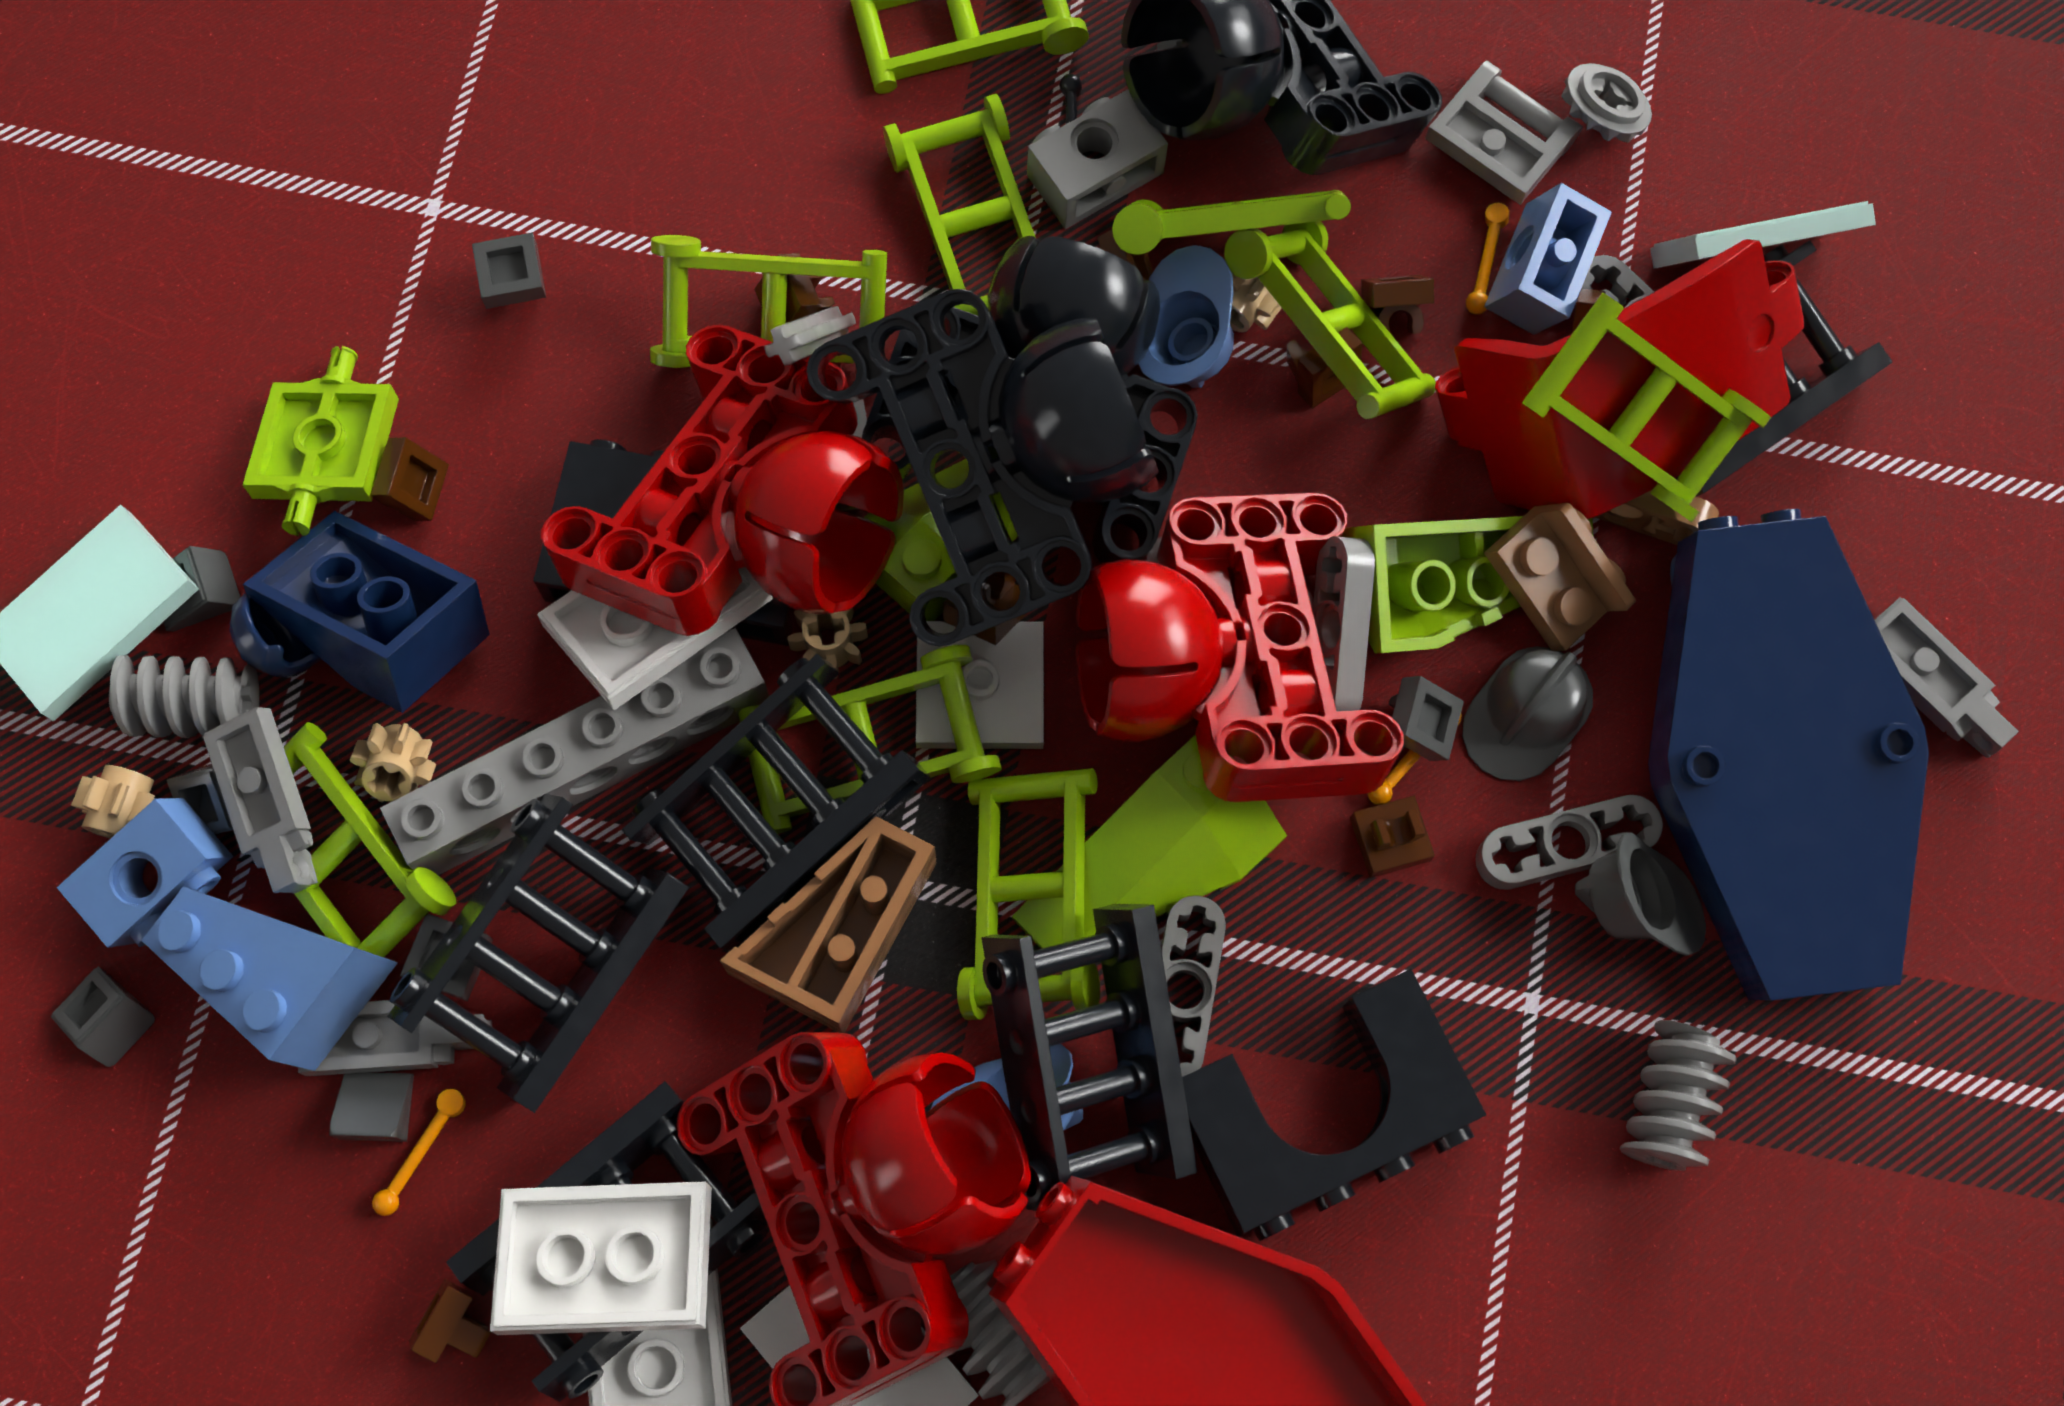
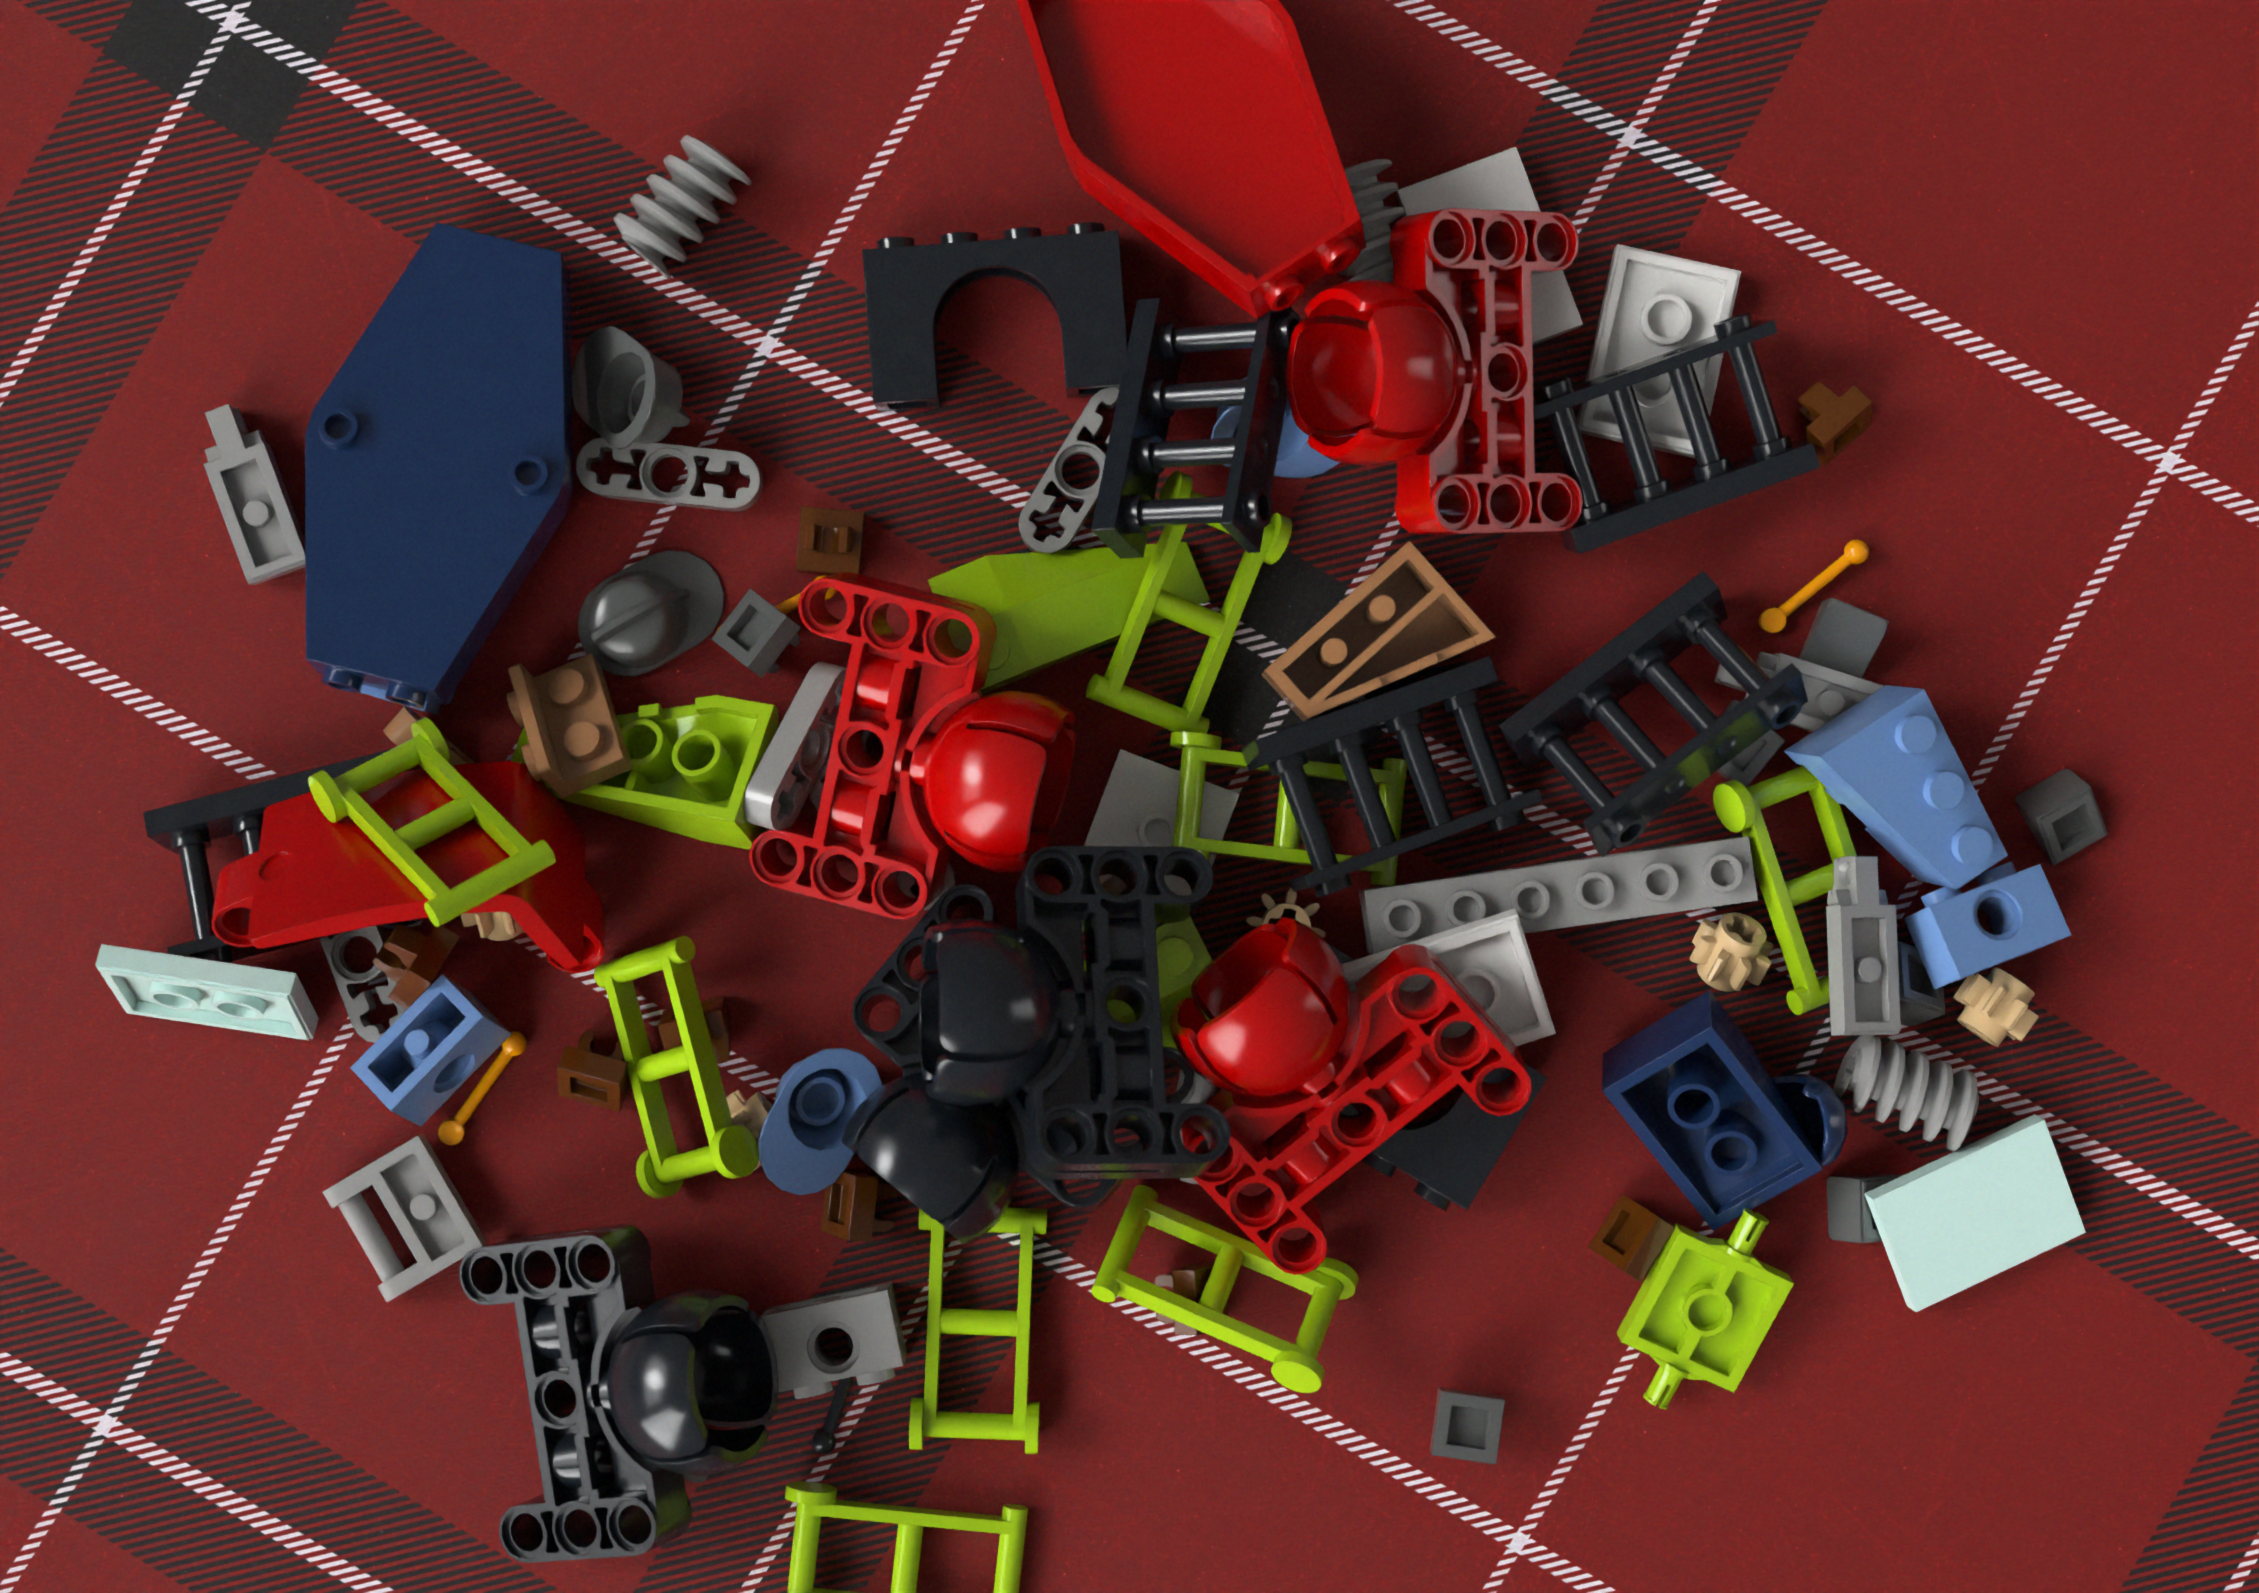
camera: 160 degrees left, 15 degrees up
(602, 1258) = (1685, 411): white tile -> none
(802, 336) = (1201, 1216): light grey axle -> none
(1146, 223) = (810, 1250): lime piece -> none
(1607, 101) = (267, 1214): light grey gear -> none

